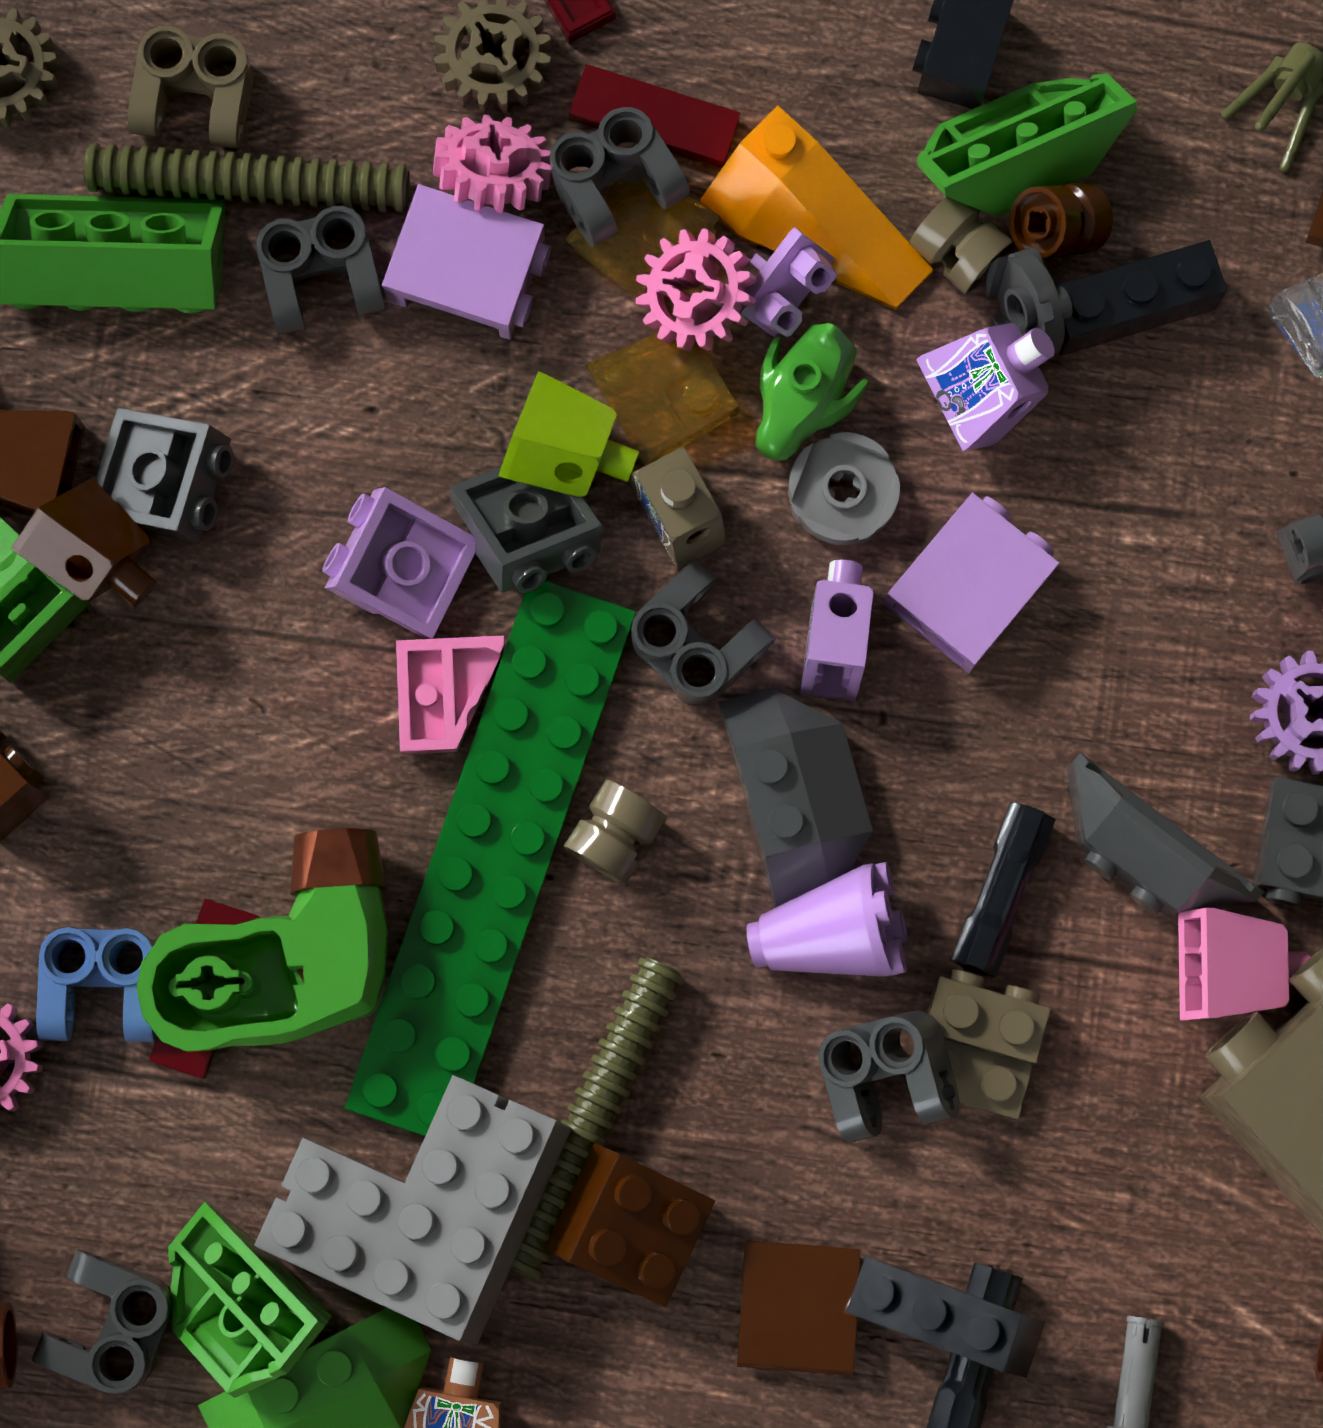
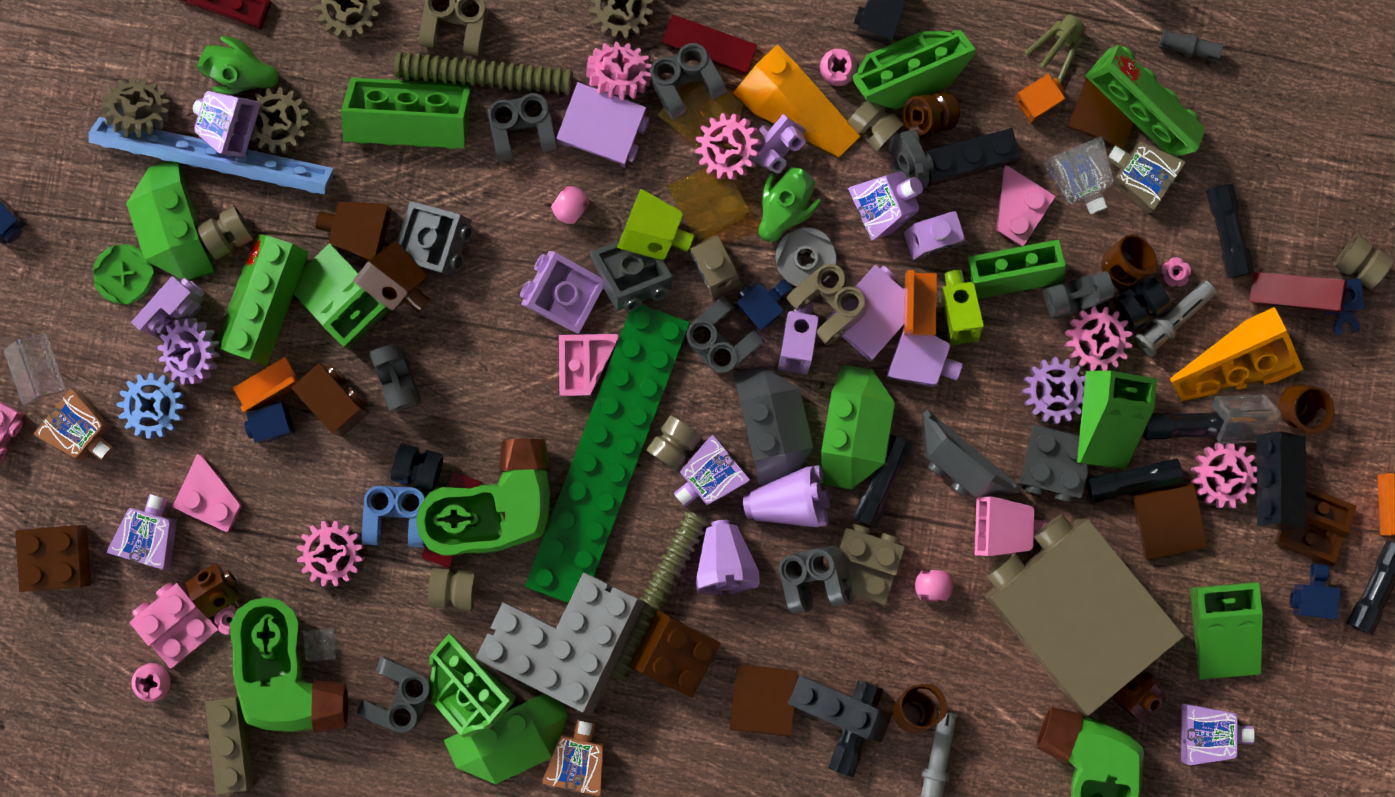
camera: 10 degrees right, 5 degrees up
(95, 726) = (396, 377): none -> dark grey piece
(137, 891) = (417, 467): none -> black wheel
(207, 1117) = (452, 589): none -> dark tan wheel
(410, 405) = (570, 204): none -> bright pink piece
(684, 888) = (710, 474): none -> torso
(718, 1049) = (725, 562): none -> lavender cone
(767, 576) = (760, 305): none -> dark blue brick
(888, 128) = (838, 55): none -> bright pink piece
(904, 549) = (835, 296): none -> dark tan piece
(950, 794) = (856, 428): none -> bright green wedge
(1058, 559) = (920, 303): none -> orange panel
(1064, 661) = (922, 360): none -> lavender torso
(1081, 438) = (935, 235): none -> lavender torso
(1095, 1336) = (912, 719): none -> reddish brown helmet
(1108, 1080) = (934, 585): none -> bright pink piece
(1132, 572) = (962, 319): none -> lime torso
(1229, 385) = (1020, 206): none -> bright pink wing
(1230, 494) = (1017, 269): none -> bright green brick
(1254, 190) = (1040, 97): none -> orange brick

